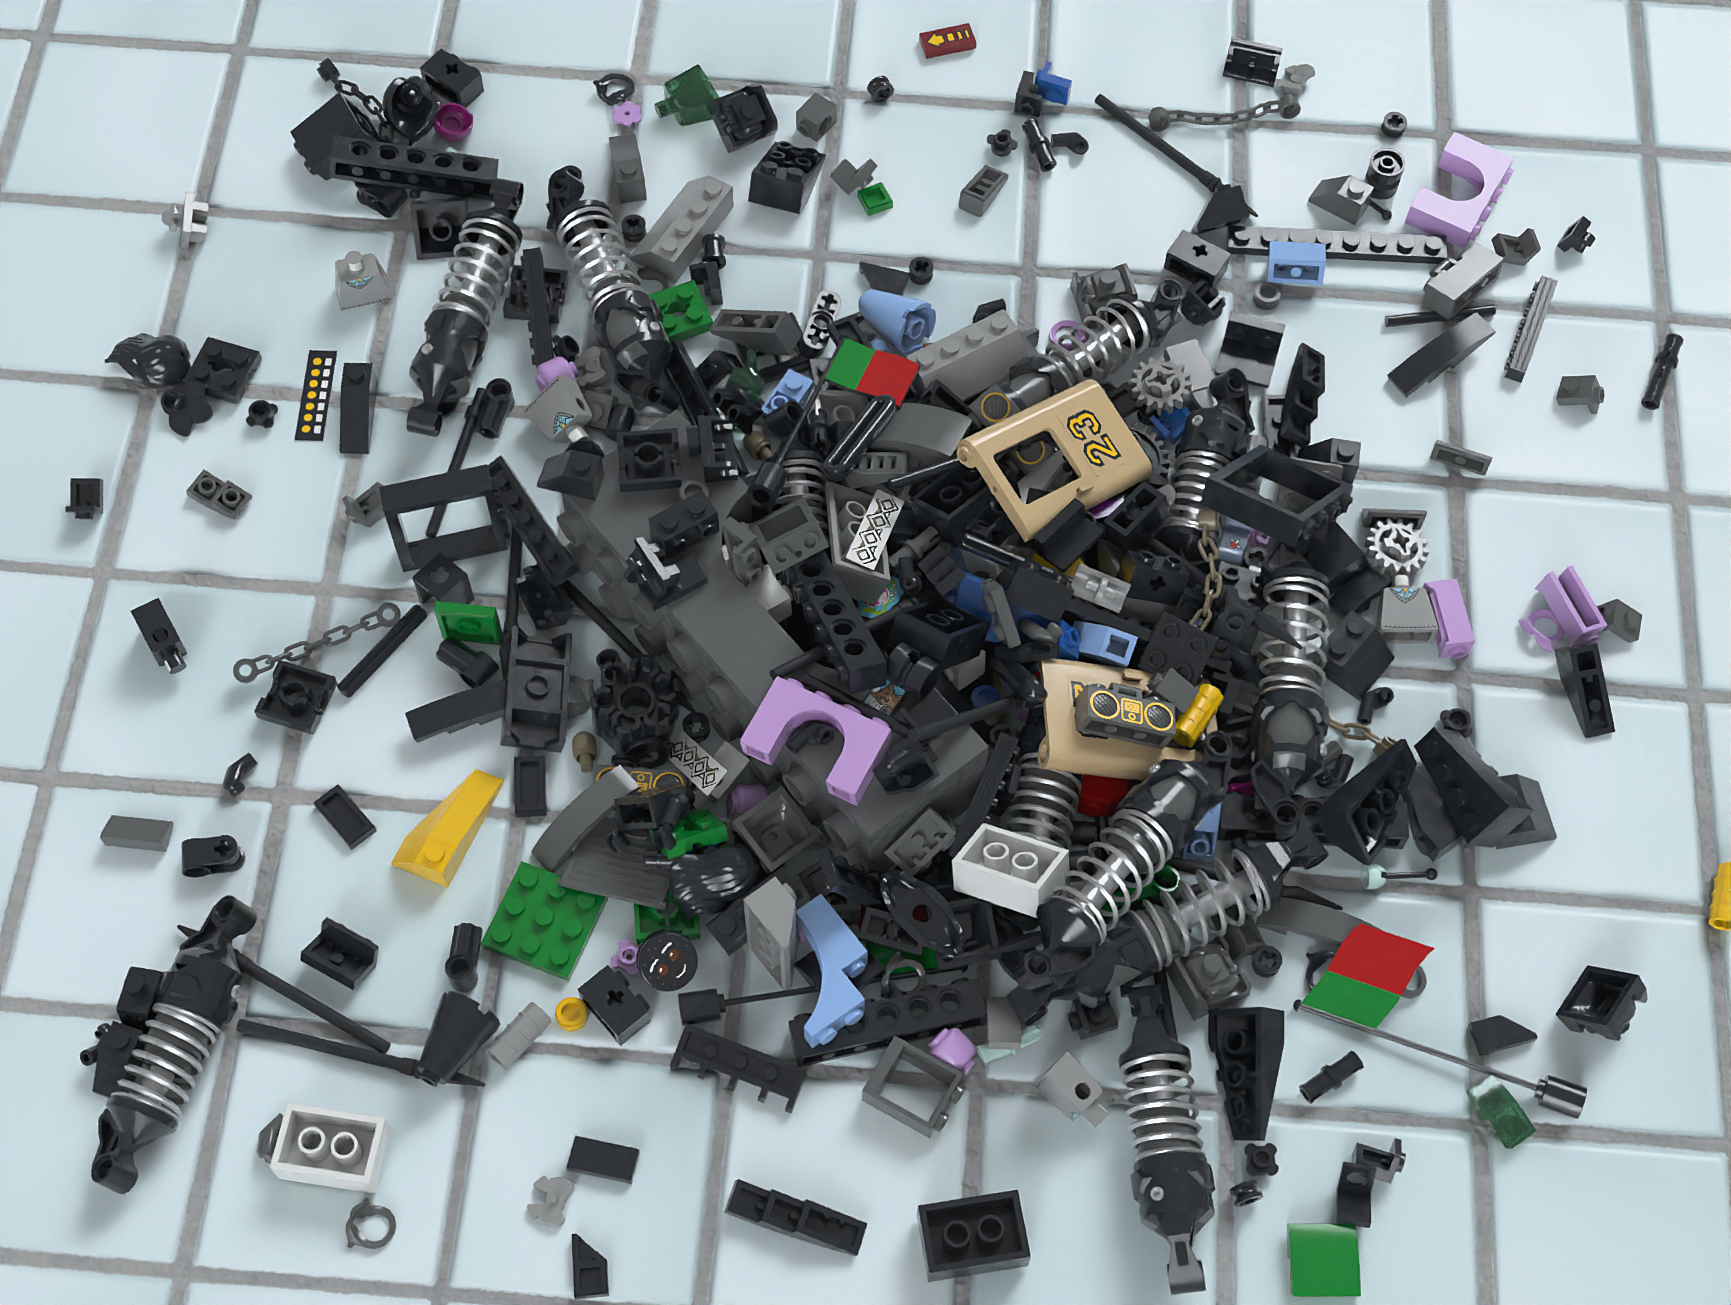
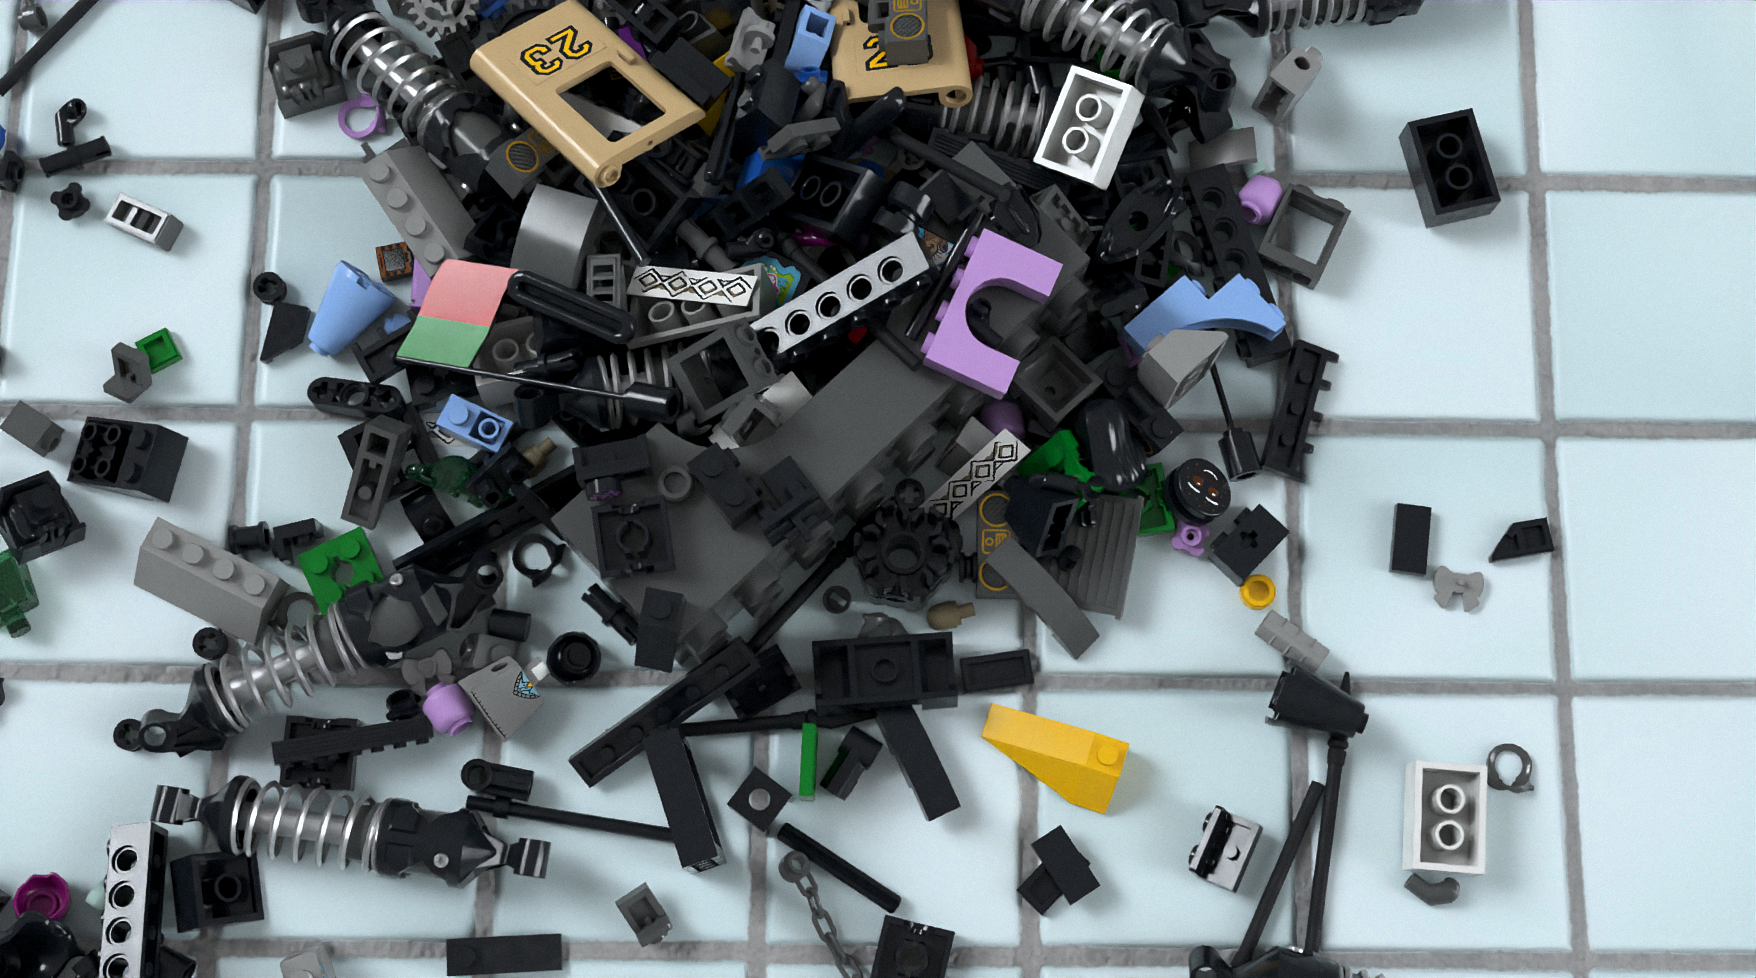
camera: 95 degrees left, 15 degrees up
(350, 820) = (1065, 865): none -> black tile
(464, 955) = (1206, 712): black piece -> none
(543, 922) = (1159, 636): green plate -> none
(627, 114) = (17, 666): lavender plant -> none
(628, 168) = (111, 661): dark grey slope -> none
(796, 1218) = (1446, 342): black slope -> none
(989, 308) = (331, 211): black arm -> none

